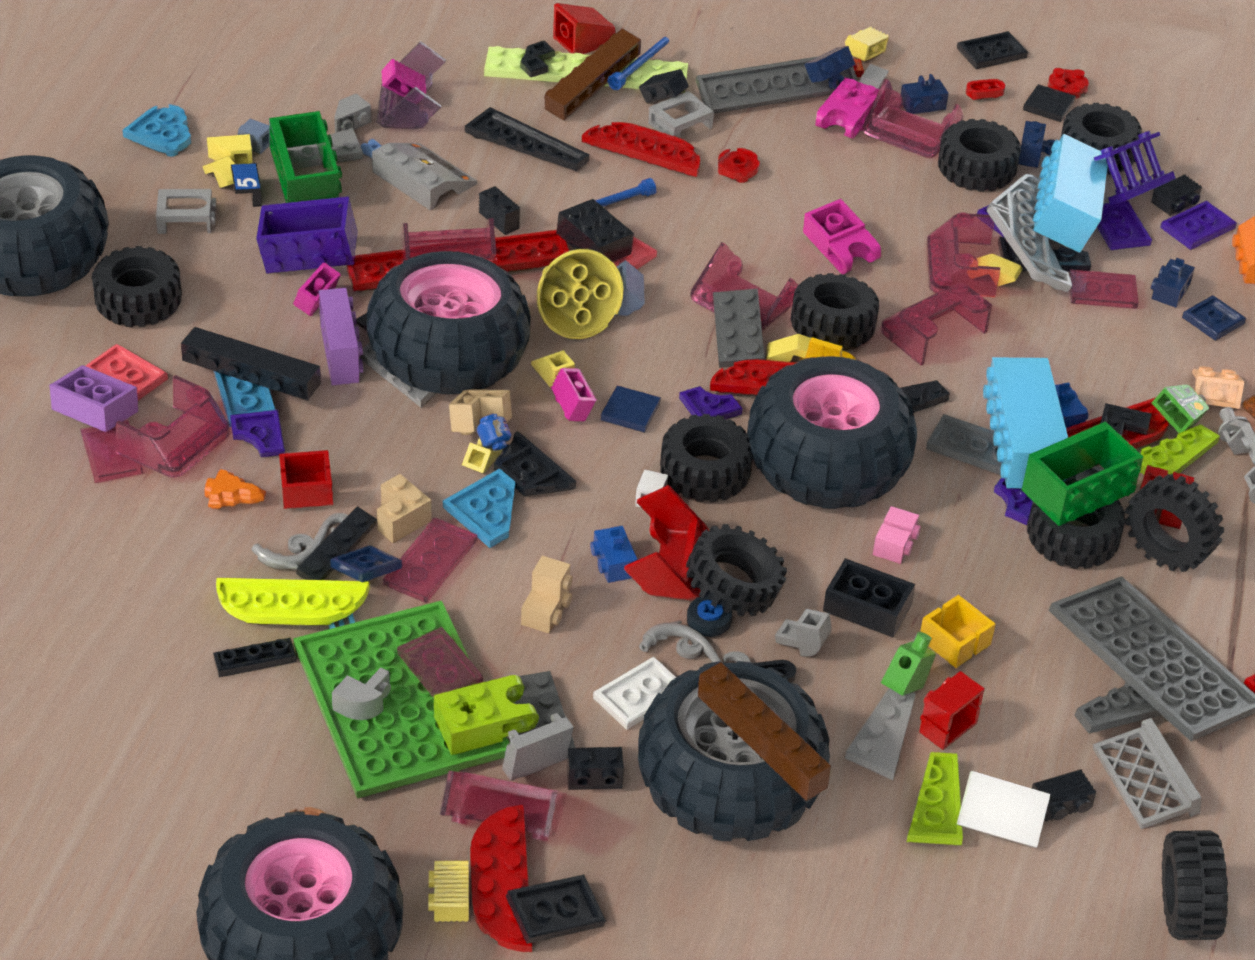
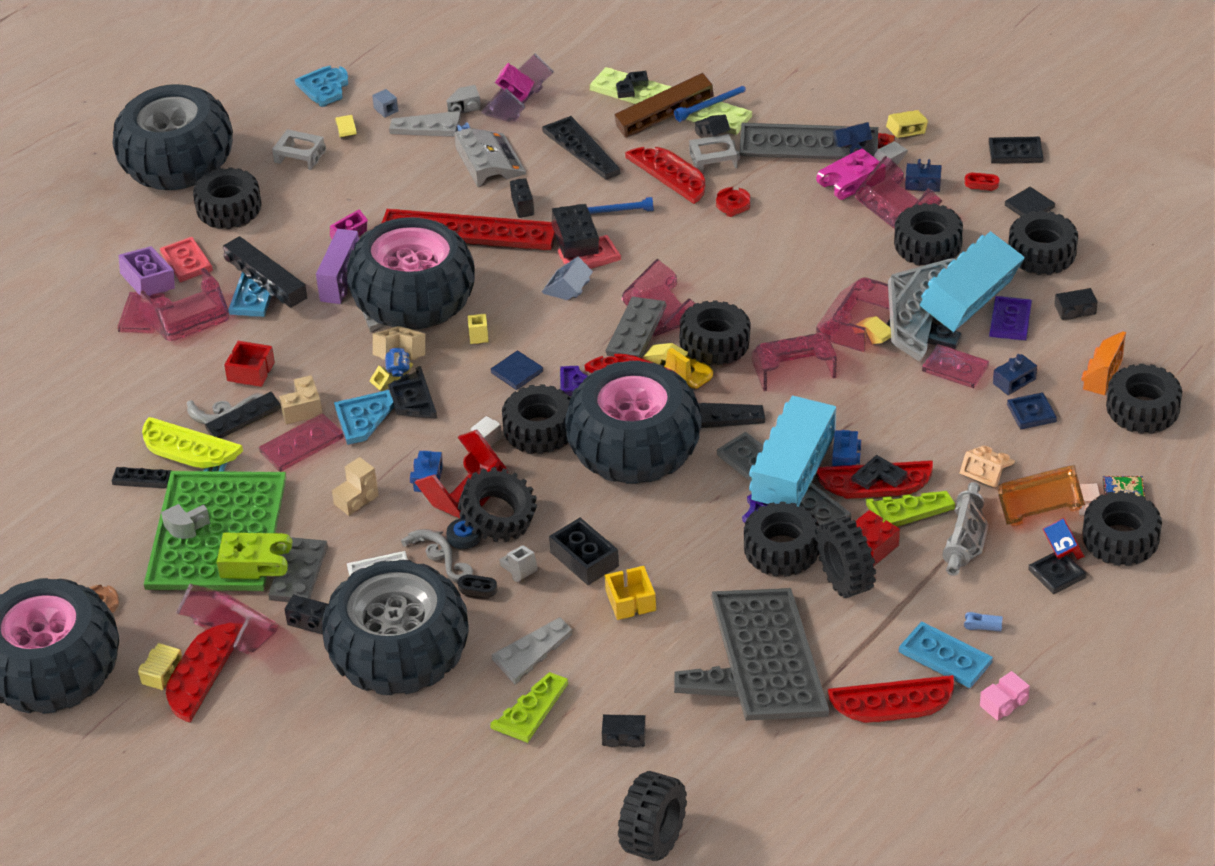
camera: 30 degrees right, 0 degrees up
(231, 490) = (198, 359): orange rock -> none
(236, 147) = (363, 111): light yellow slope -> none
(247, 181) = (355, 135): panel -> none
(260, 430) = (245, 322): dark purple tile -> none
(302, 131) = (399, 105): green hose -> none
(307, 234) = (364, 185): dark purple hose -> none
(366, 563) = (251, 433): dark blue tile -> none
(439, 662) = (252, 512): clear pink tile -> none
(471, 241) = (457, 216): clear pink windscreen -> none
(537, 748) = (268, 588): light grey piece -> none
(555, 908) = (218, 698): black tile -> none
(573, 394) = (476, 348): dark pink brick -> none
(579, 293) = (522, 274): light yellow cone -> none
(580, 28) = (684, 63): red slope -> none
(764, 731) = (393, 614): reddish brown brick -> none
(840, 235) = (766, 274): dark pink brick -> none
(896, 535) = (639, 517): bright pink piece -> none
(910, 666) = (571, 607): bright green torso -> none
(951, 710) = (581, 646): red piece -> none
(1003, 809) = (565, 725): white tile -> none
(1033, 144) = (983, 227): dark blue brick -> none
(1069, 81) = (1067, 190): red plate -> none
(1076, 454) = (790, 499): green hose -> none
(1146, 182) = (1037, 288): dark purple fence -> none
(1169, 770) = (717, 739): light grey fence -> none
(1181, 406) = (939, 472): bright green torso -> none
(1198, 225) = (1078, 332): dark purple tile -> none

